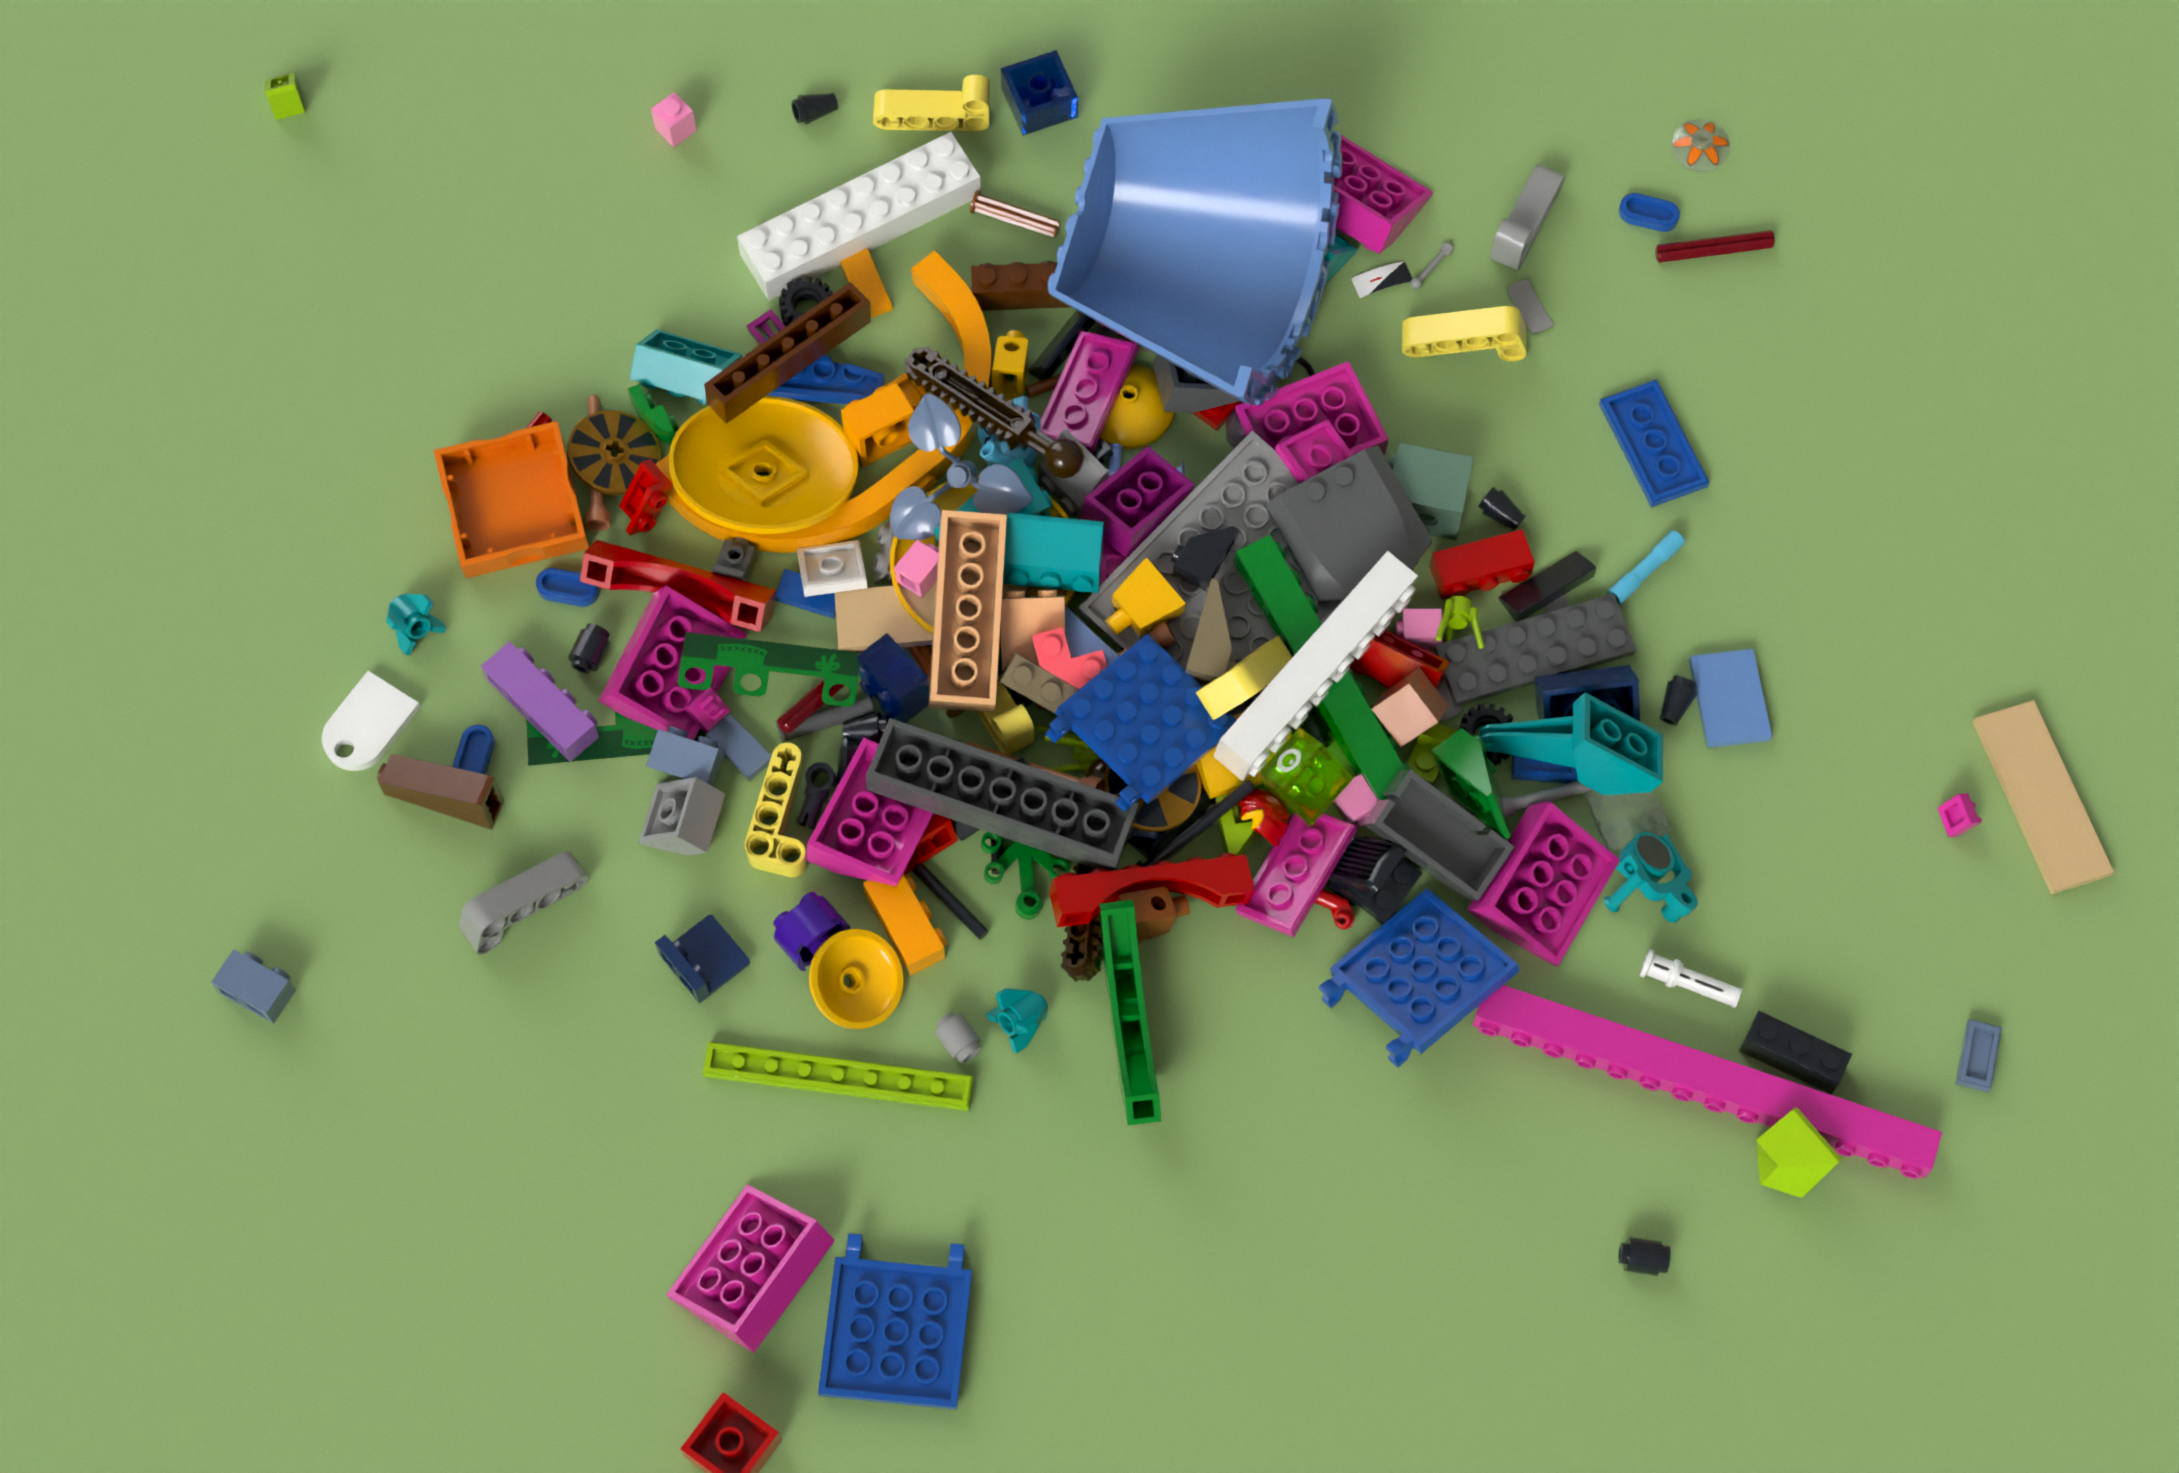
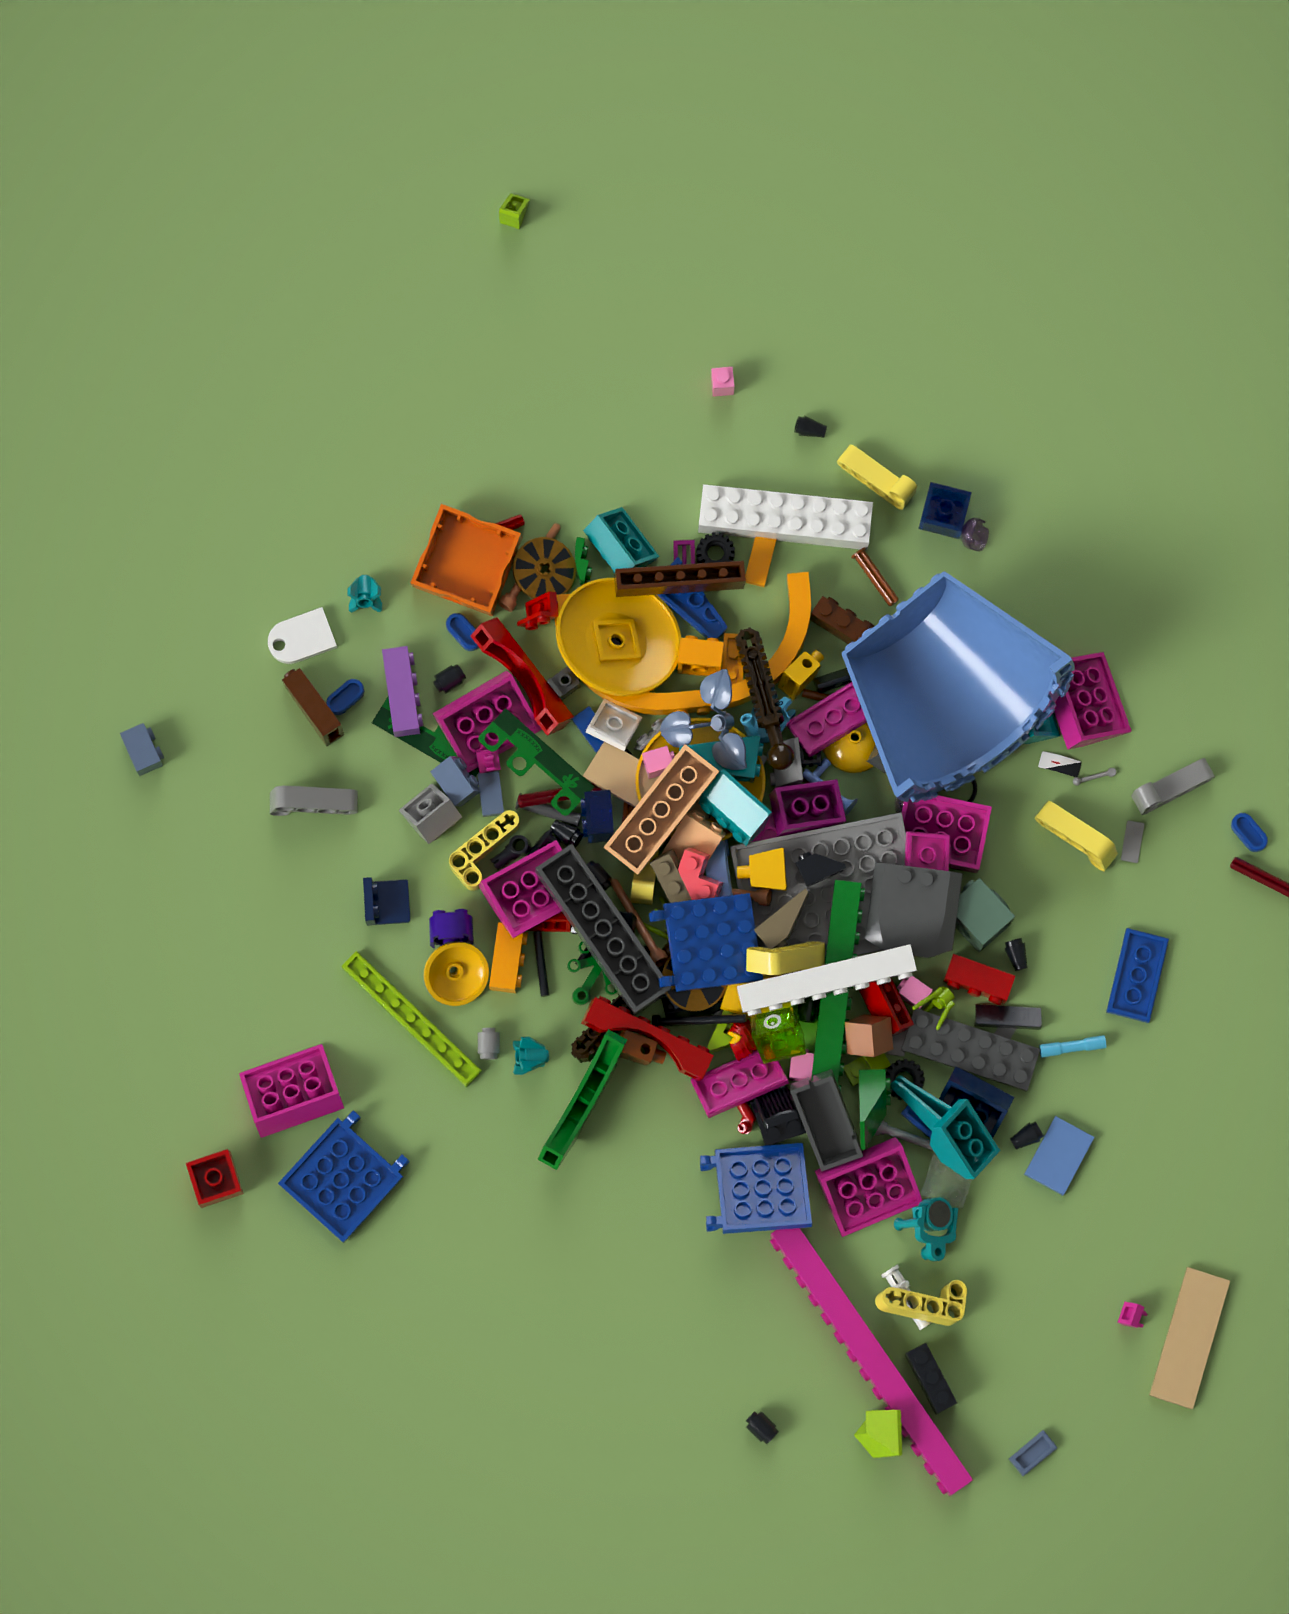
camera: 35 degrees right, 10 degrees up
(1092, 99) = (974, 534): none -> hair
(1743, 961) = (919, 1303): none -> light yellow beam

